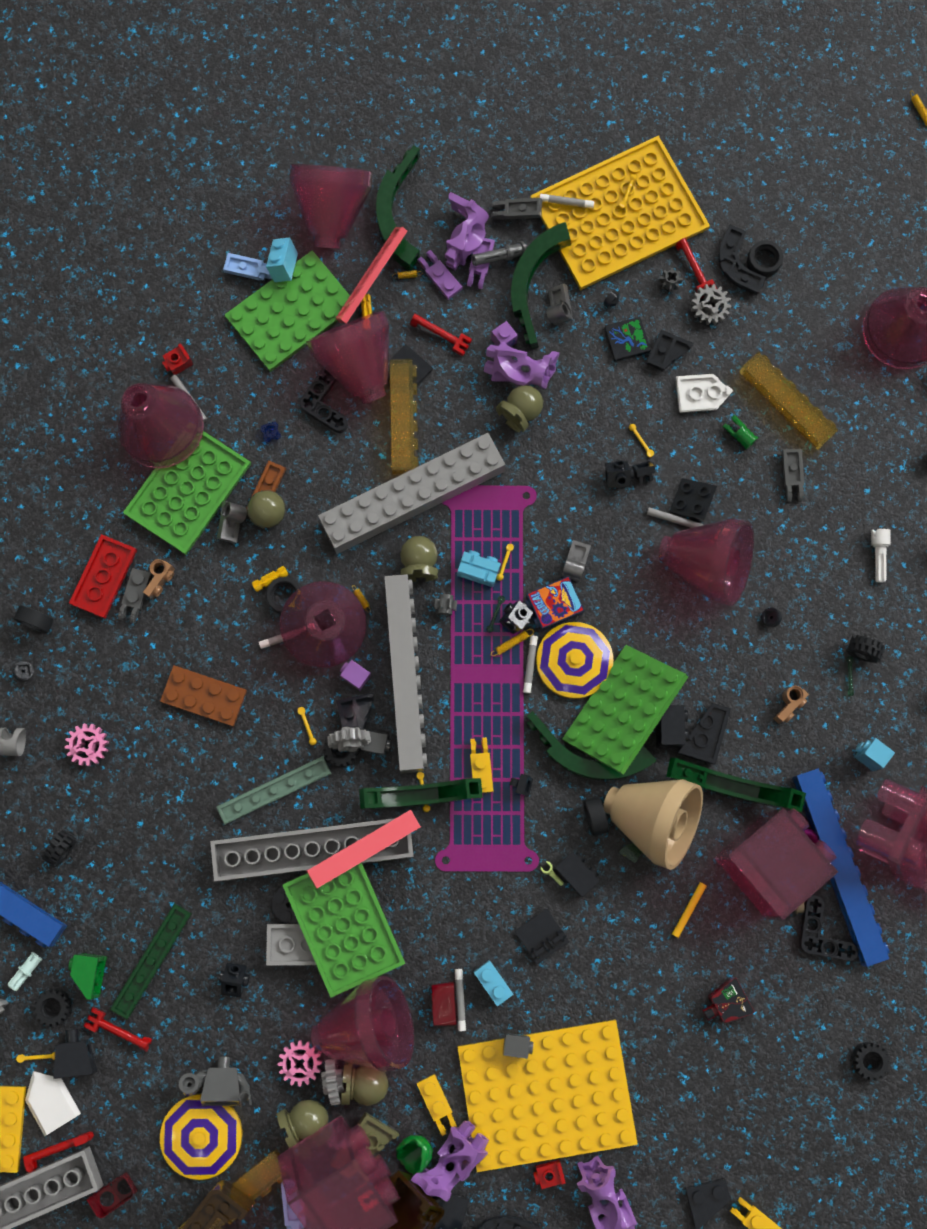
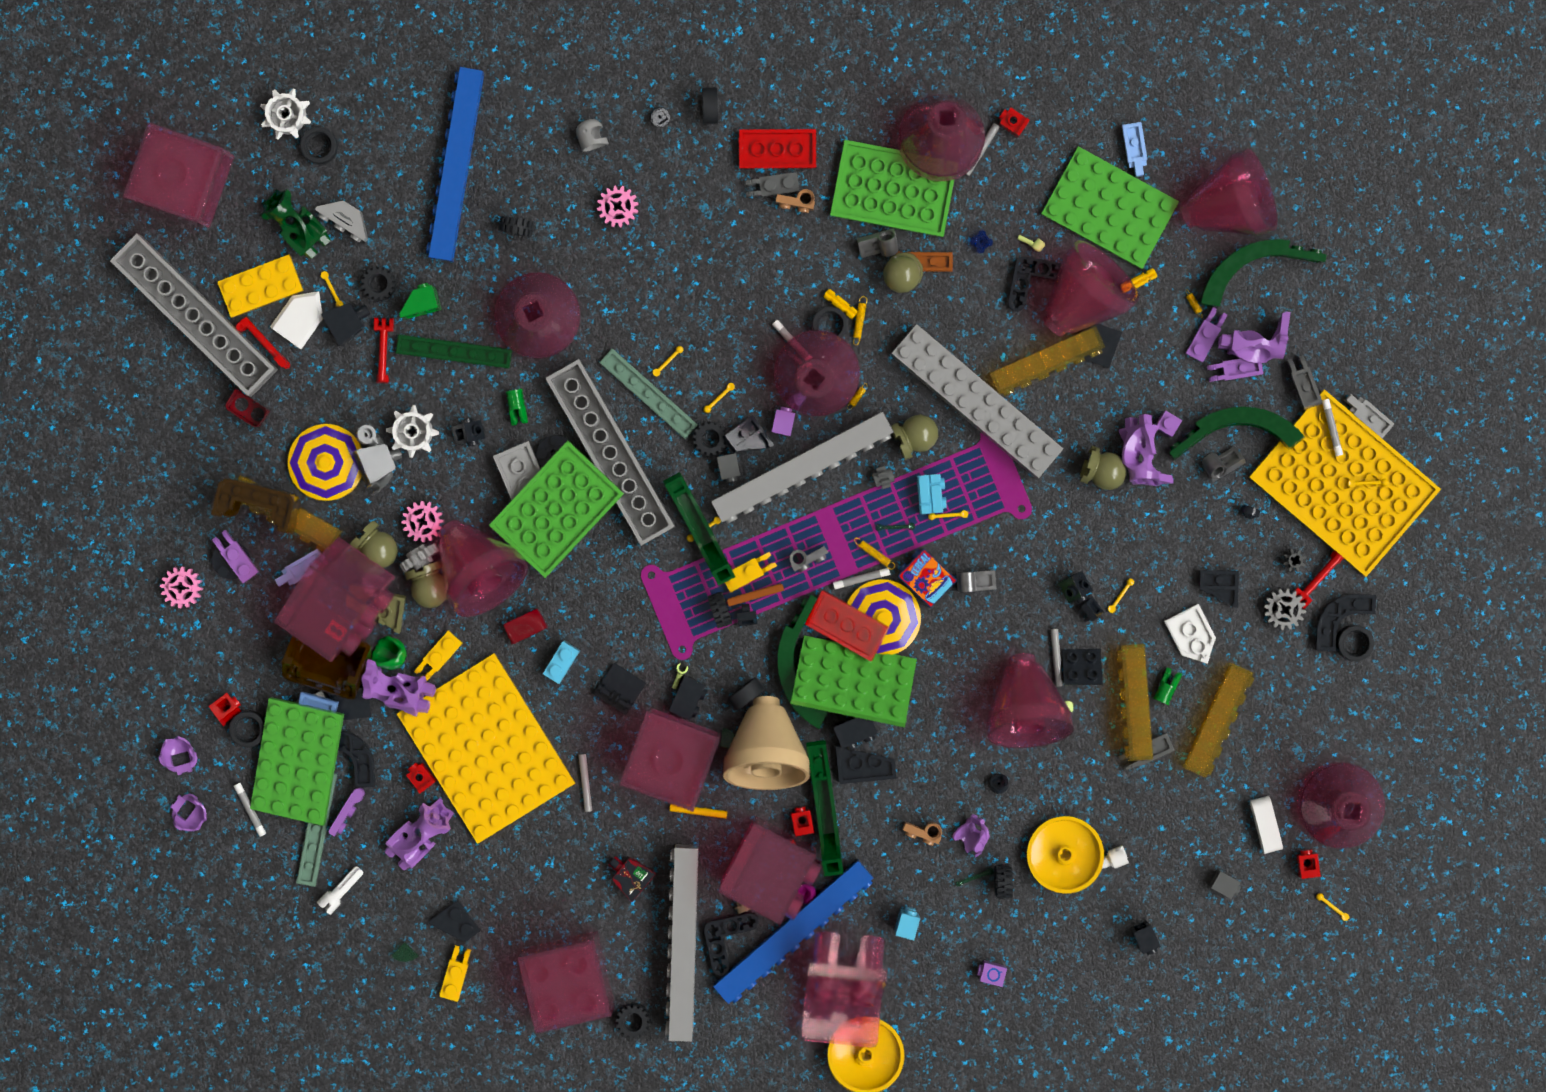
camera: 75 degrees right, 10 degrees up
(24, 971) = (398, 244): light aqua axle -> none
(171, 865) = (547, 334): none -> clear pink cone
(197, 1039) = (404, 423): none -> white brick
(203, 695) = (706, 291): dark orange plate -> none
(225, 921) = (516, 401): none -> green hinge
(257, 774) = (656, 372): none -> yellow hinge
(282, 259) = (1154, 178): medium azure brick -> none
(293, 568) = (859, 320): none -> yellow piece
(296, 386) = (1038, 245): none -> yellowish green hand
(349, 739) = (720, 444): light grey gear -> none
(363, 849) = (628, 499): coral tile -> none
(371, 274) = (1173, 271): coral tile -> none
(458, 342) = (1145, 381): red hinge -> none
(460, 1000) = (534, 639): light grey bar -> none
(492, 696) = (816, 556): none -> flat silver plate
(505, 765) = (755, 594): none -> dark orange tile
(506, 807) = (719, 610): none -> black tyre
(507, 252) = (1254, 391): dark grey pin -> none
(516, 616) = (899, 547): black brick -> none
(517, 1046) = (516, 705): dark grey brick -> none
(568, 168) = (1369, 415): none -> light grey hinge
(569, 694) = (847, 625): none -> red plate
(619, 1009) = (585, 782): none -> light grey bar
(627, 339) = (1217, 542): tile -> none
(632, 913) = (670, 759): none -> clear pink piece
(745, 463) = (1135, 702): none -> clear yellow brick
(745, 813) = (802, 828): none -> red brick
(812, 662) = (973, 838): none -> medium lavender helmet
(812, 1113) = (566, 982): none -> clear pink piece
(818, 980) = (683, 945): none -> light grey brick
(862, 583) = (1065, 855): none -> yellow dish
(899, 397) = (1266, 824): none -> white beam

